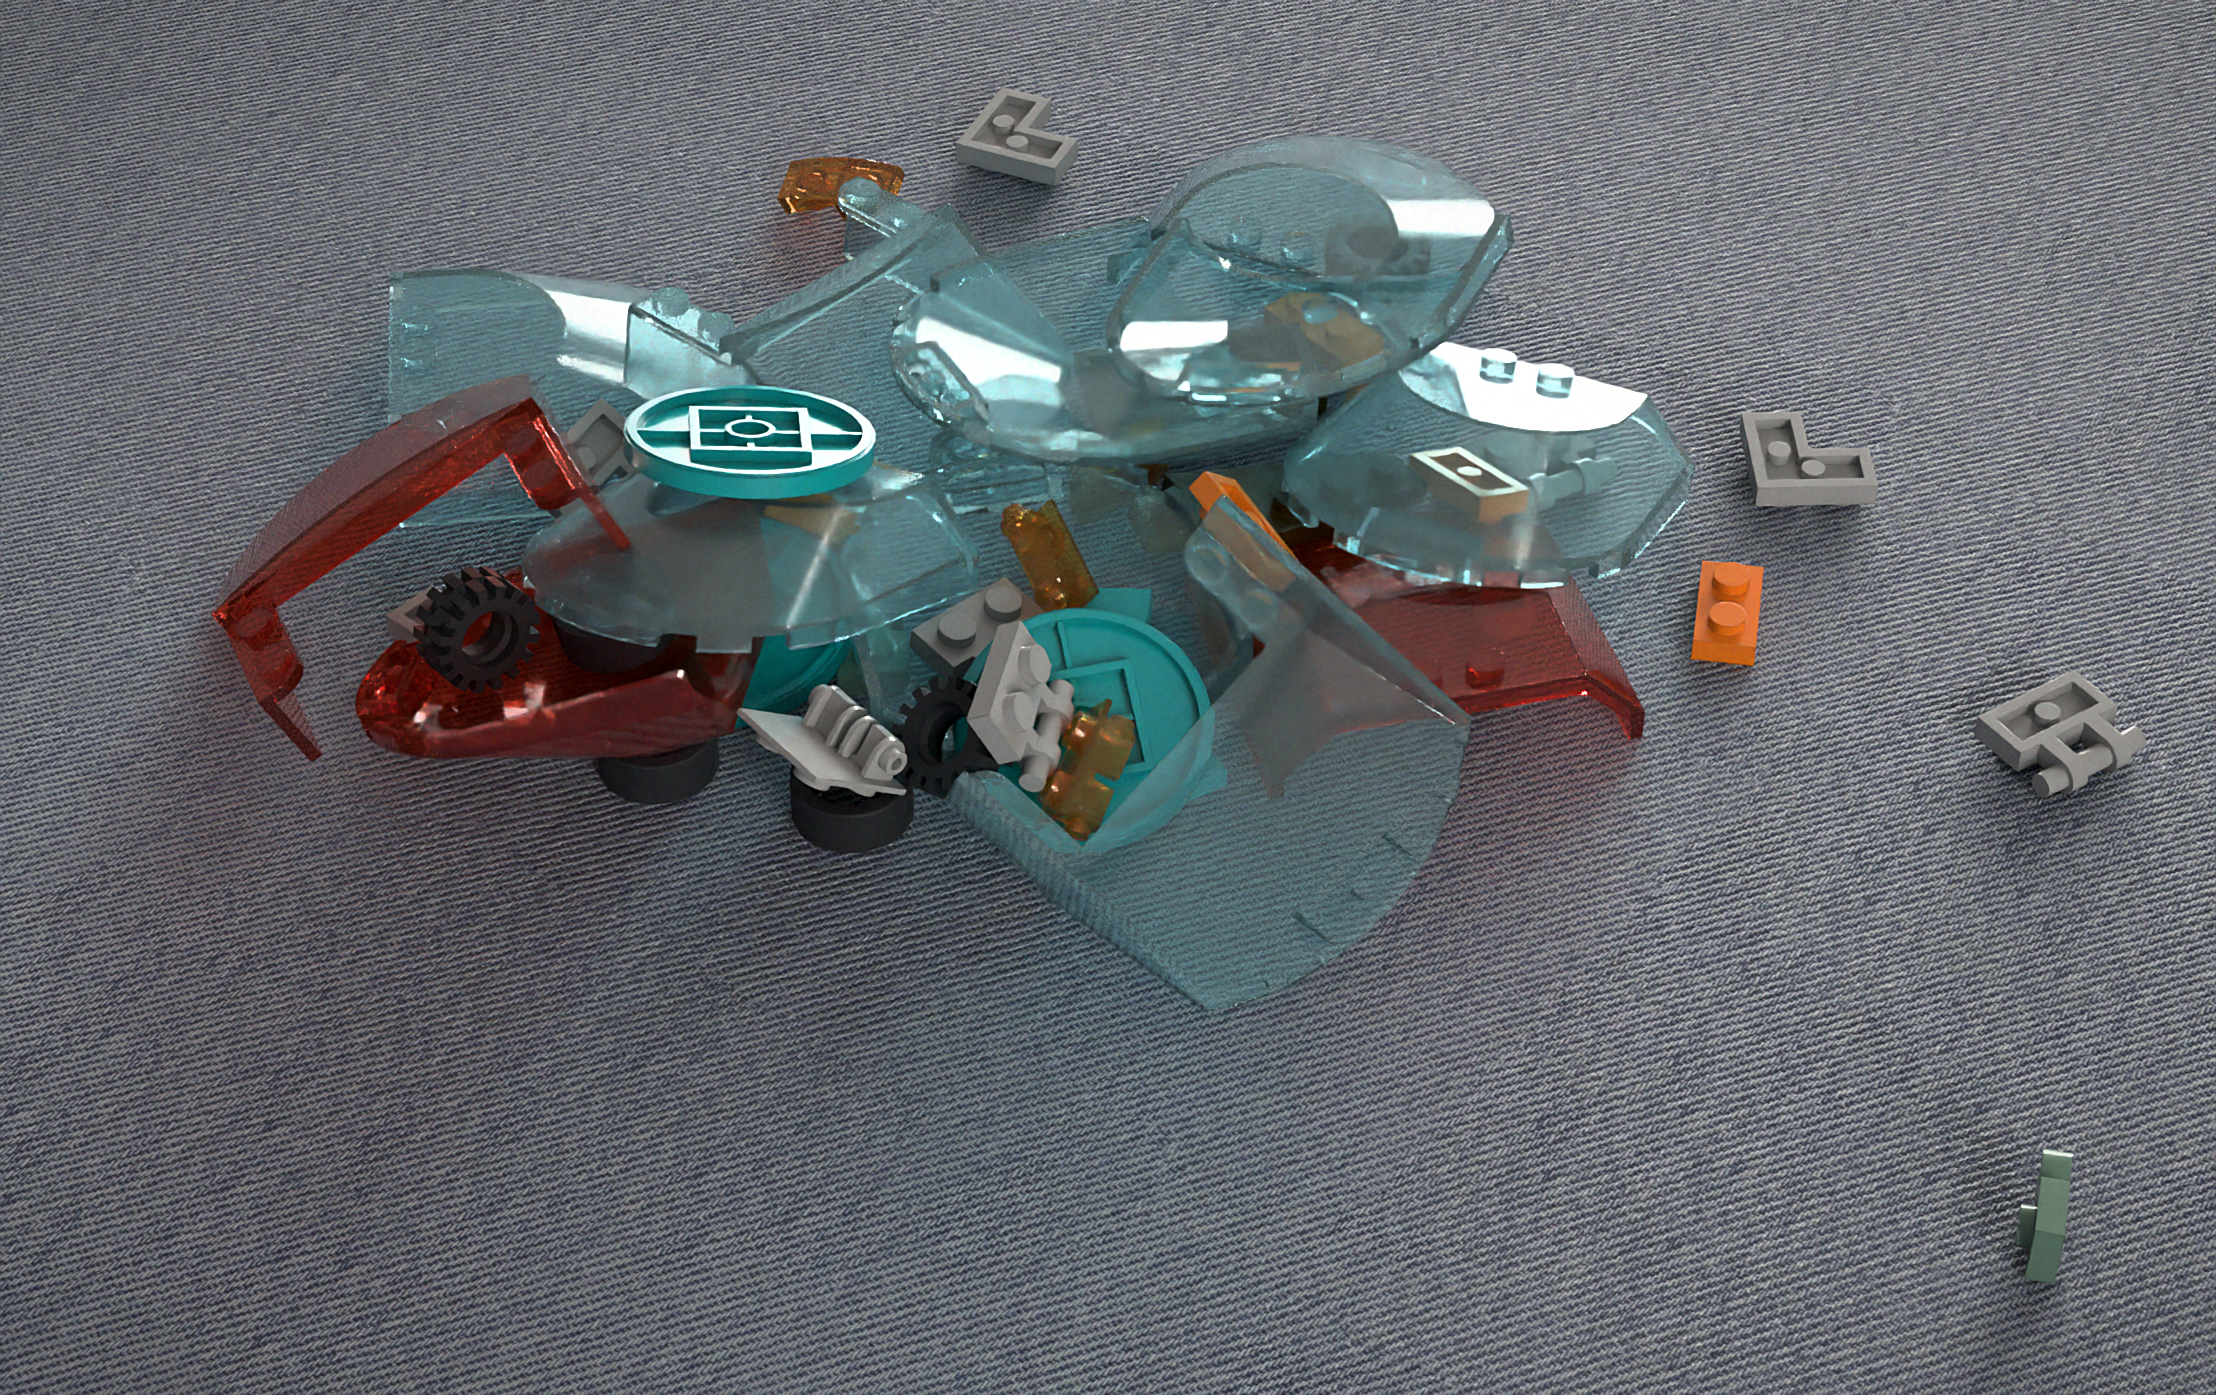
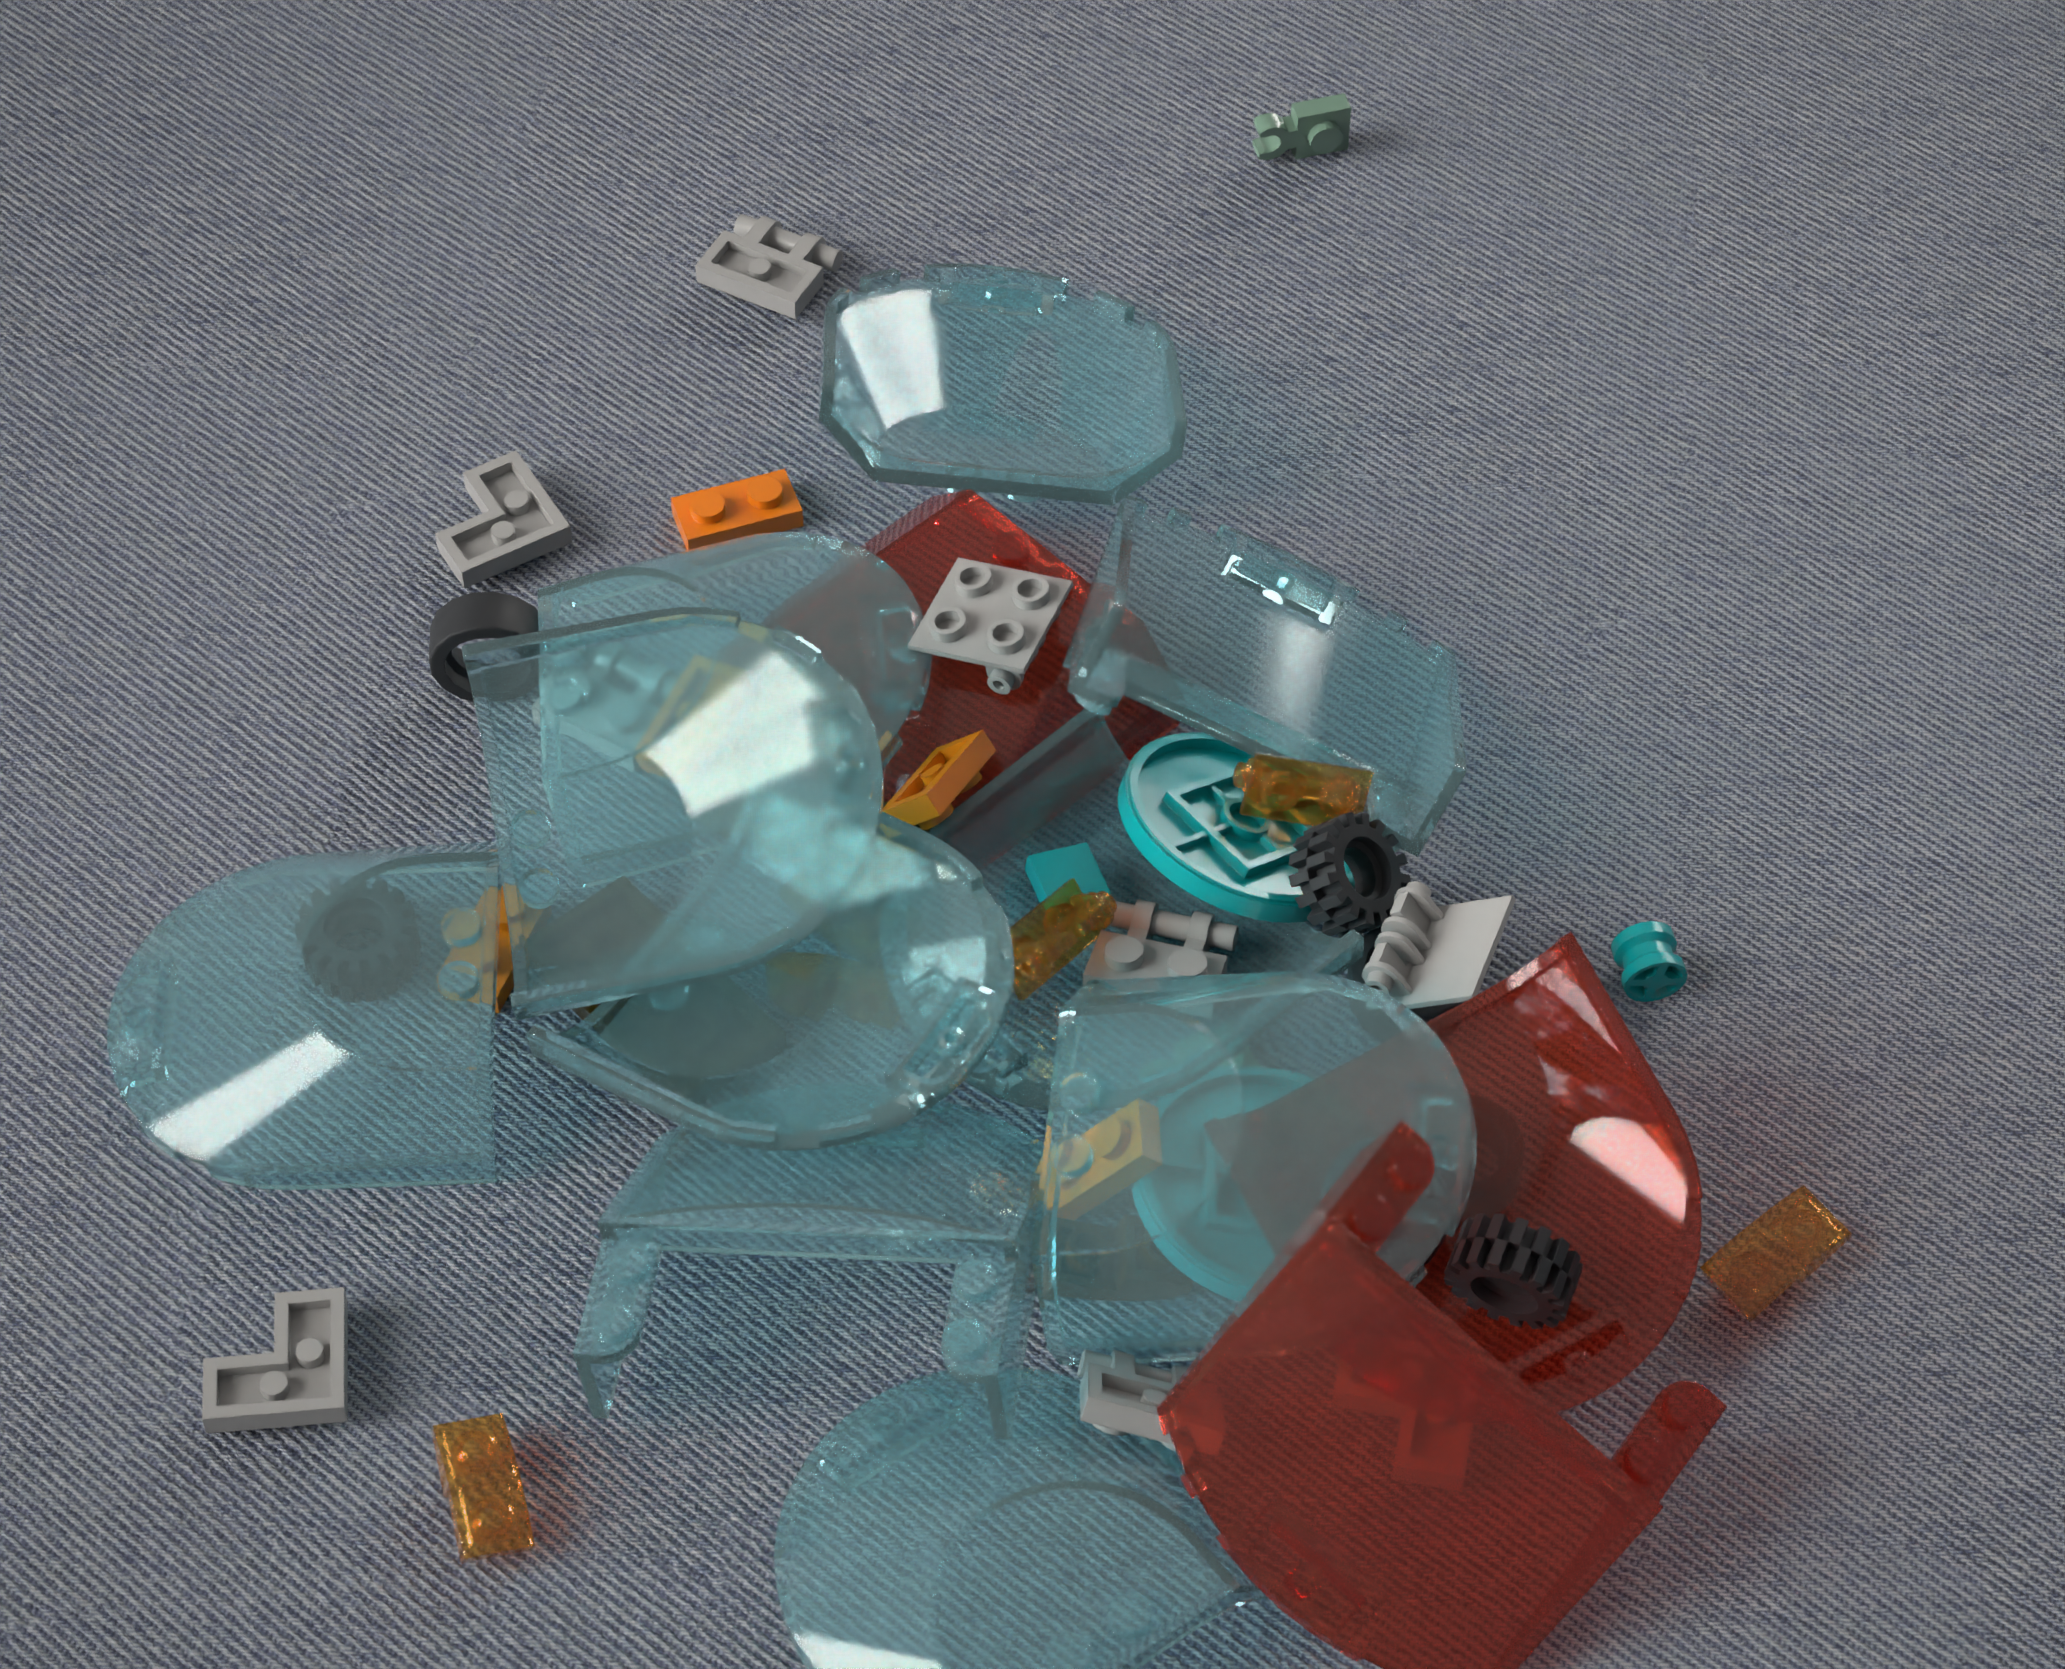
camera: 120 degrees left, 10 degrees up
(396, 888) = (1775, 1252): none -> clear orange slope
(739, 949) = (1649, 961): none -> teal wheel
(749, 442) = (1152, 1136): teal plate -> none
(1014, 699) = (1290, 807): light grey plate -> none
(1391, 587) = (991, 619): none -> light grey hinge
(1630, 360) = (470, 618): none -> black tyre
(1773, 779) = (999, 385): none -> clear light blue windscreen

